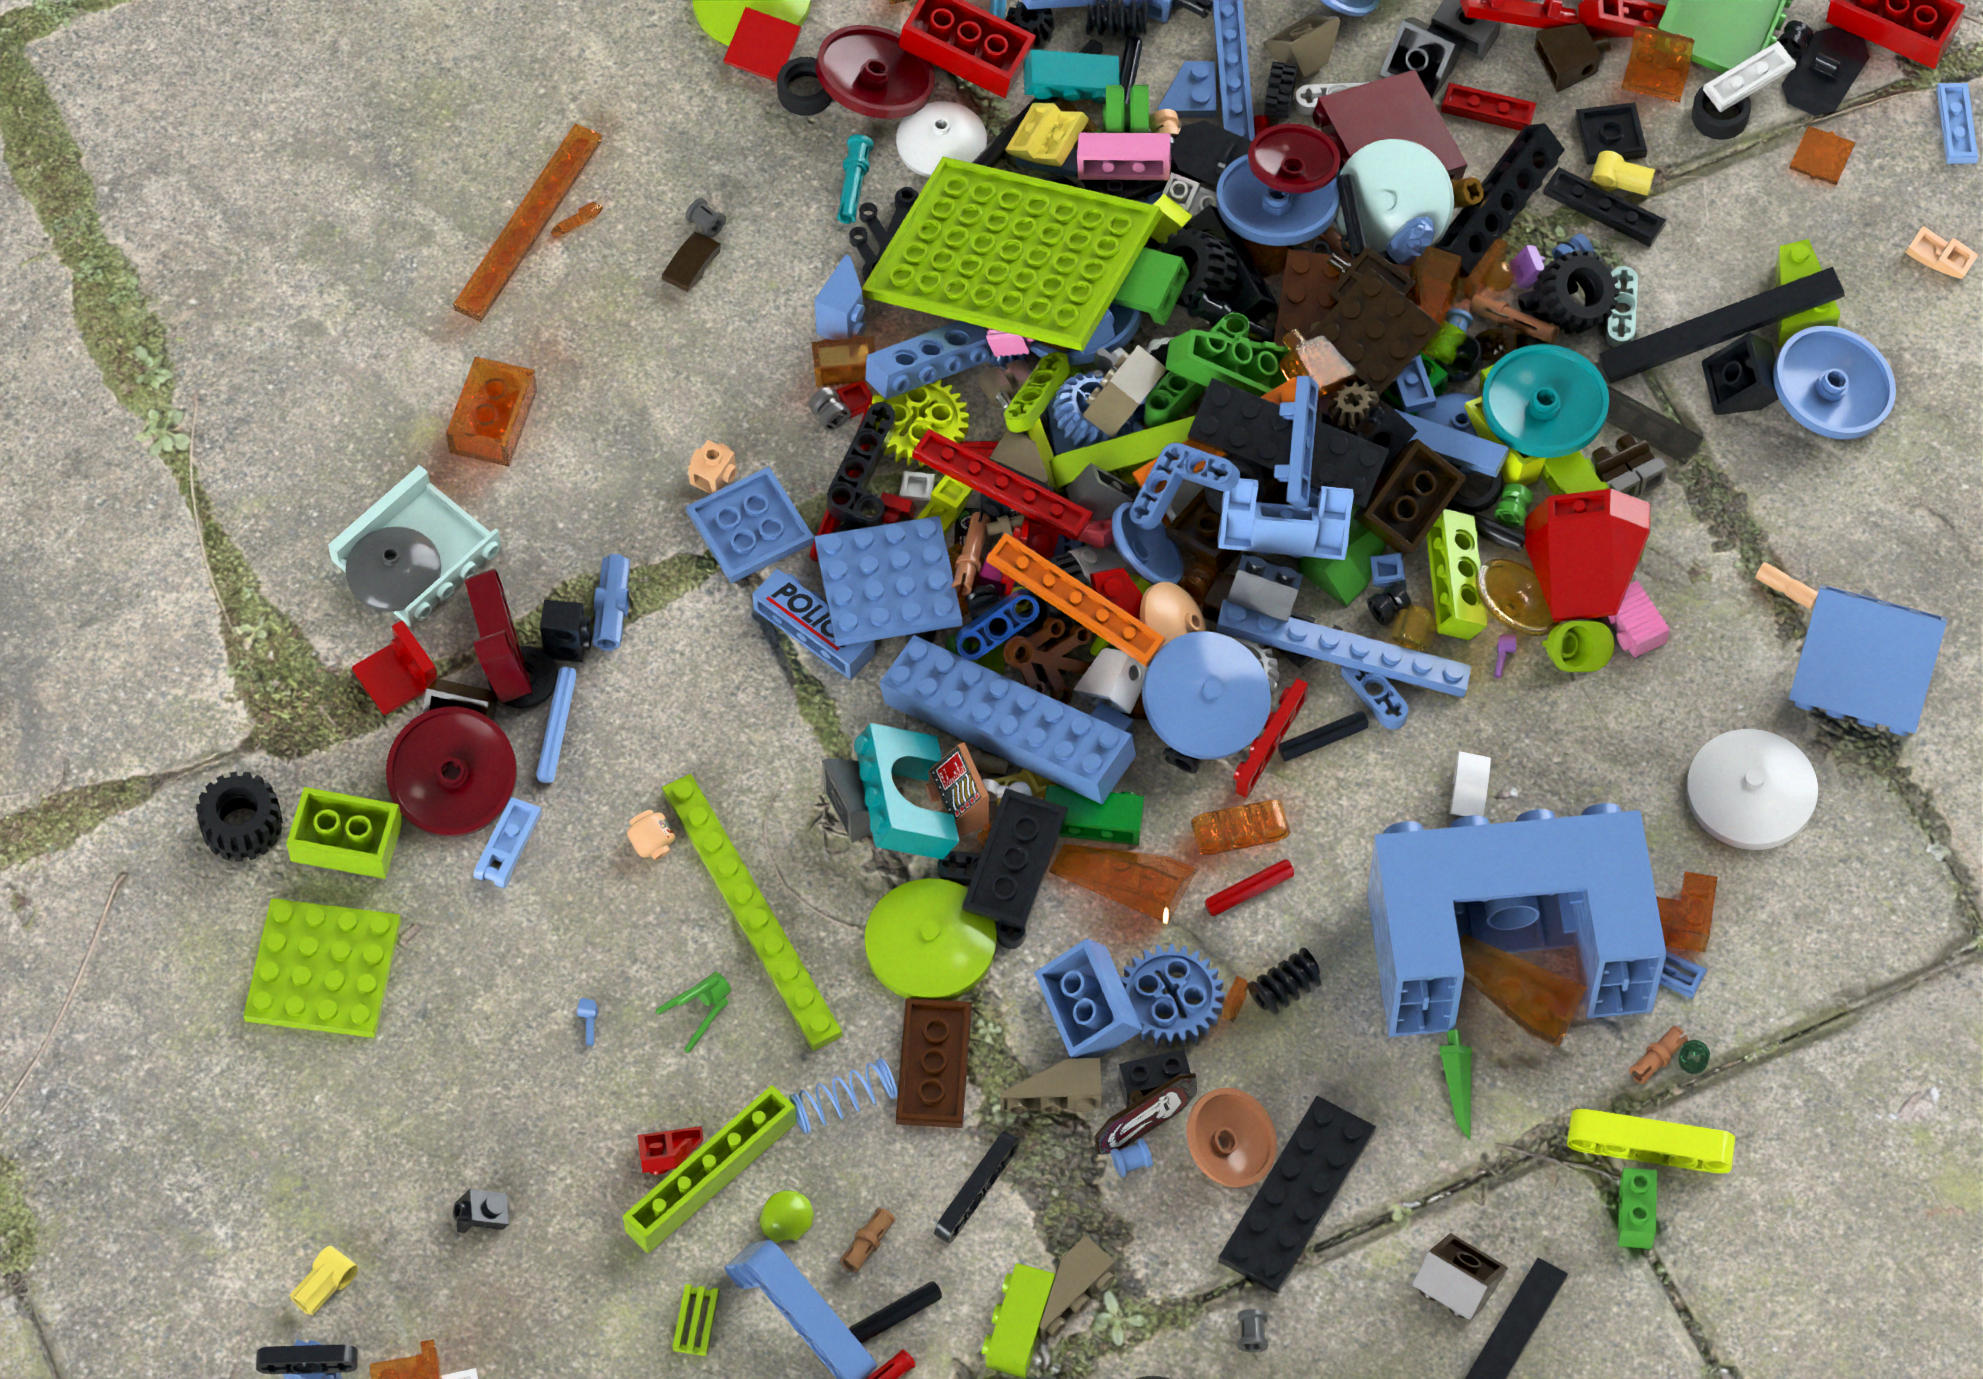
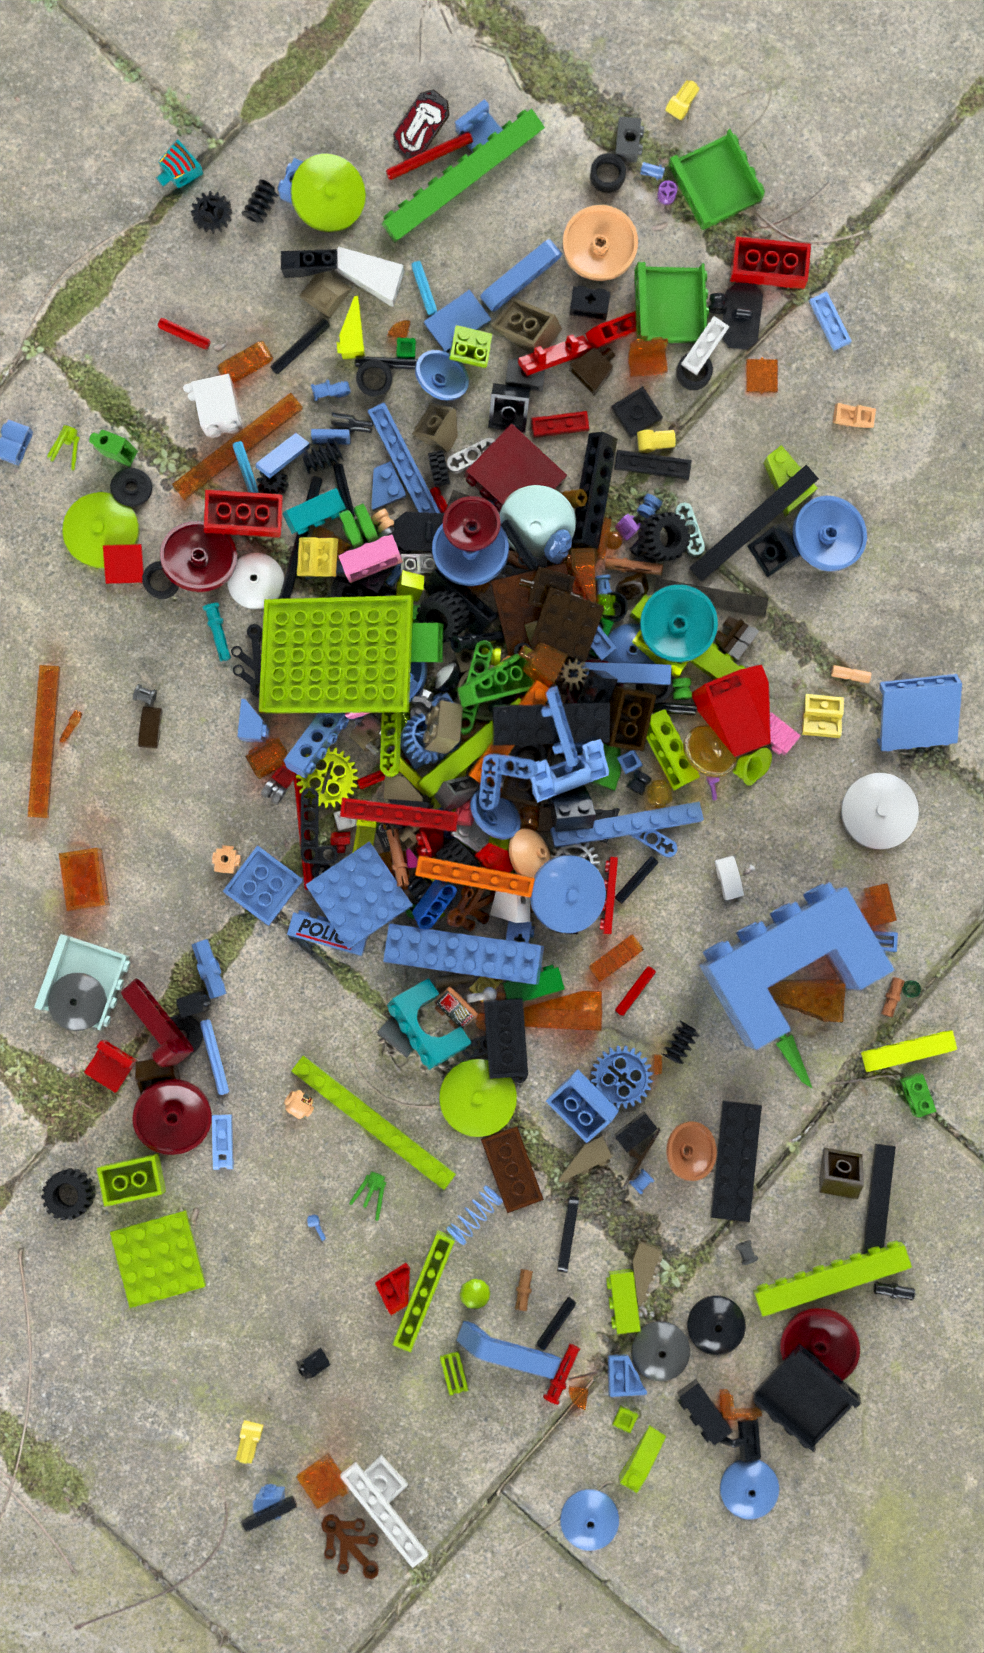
camera: 25 degrees left, 25 degrees up
(1718, 626) = (822, 716): none -> light yellow slope

